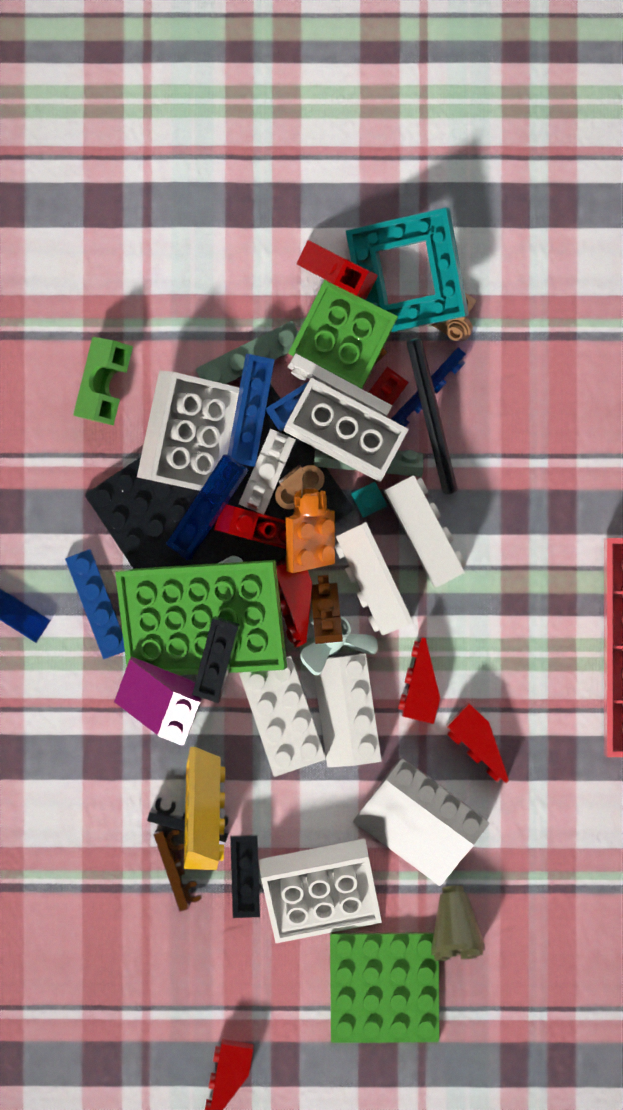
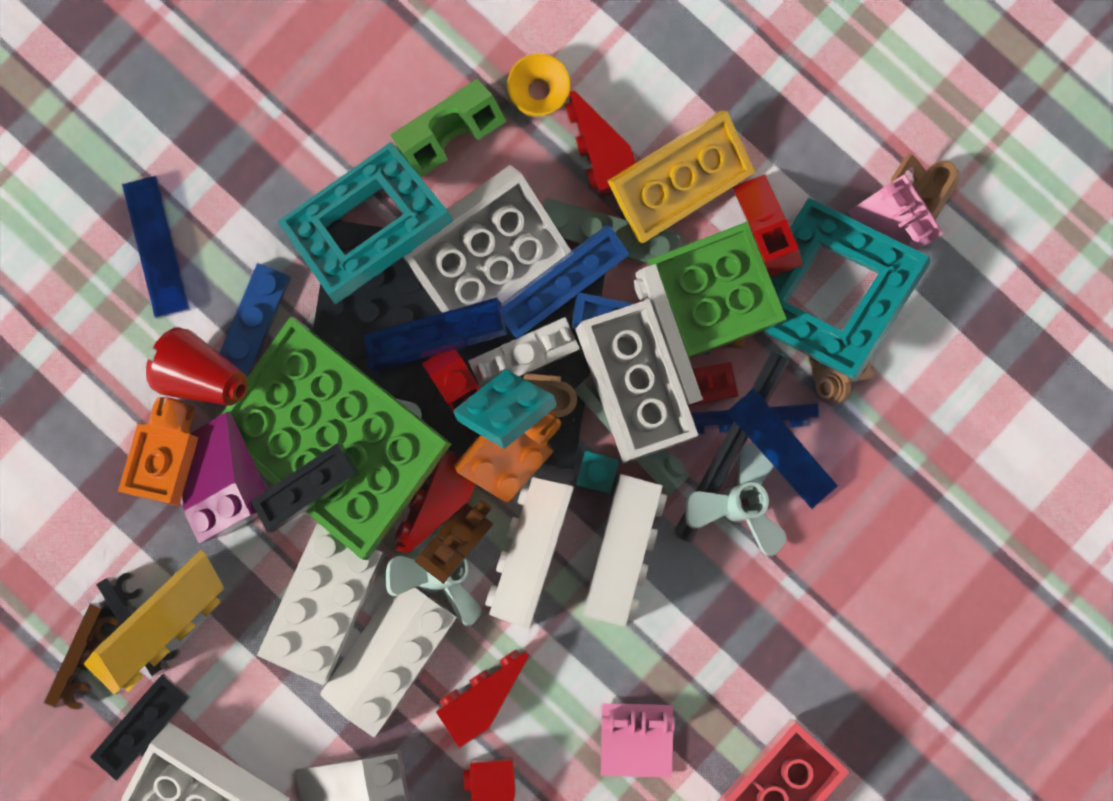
camera: 45 degrees right, 5 degrees down
(90, 651) = (193, 370): none -> red cone
(114, 716) = (161, 453): none -> orange plate
(131, 293) = (533, 69): none -> yellow piece
(141, 450) = (420, 220): none -> teal plate
(207, 311) = (603, 146): none -> red slope
(262, 286) = (681, 176): none -> yellow plate
(287, 513) = (505, 408): none -> teal plate
(406, 196) = (898, 214): none -> bright pink hinge
(410, 162) = (932, 185): none -> medium nougat bracket
(454, 415) = (751, 472): none -> light aqua piece
(461, 391) = (782, 448): none -> clear blue tile
(528, 629) = (637, 740): none -> bright pink hinge

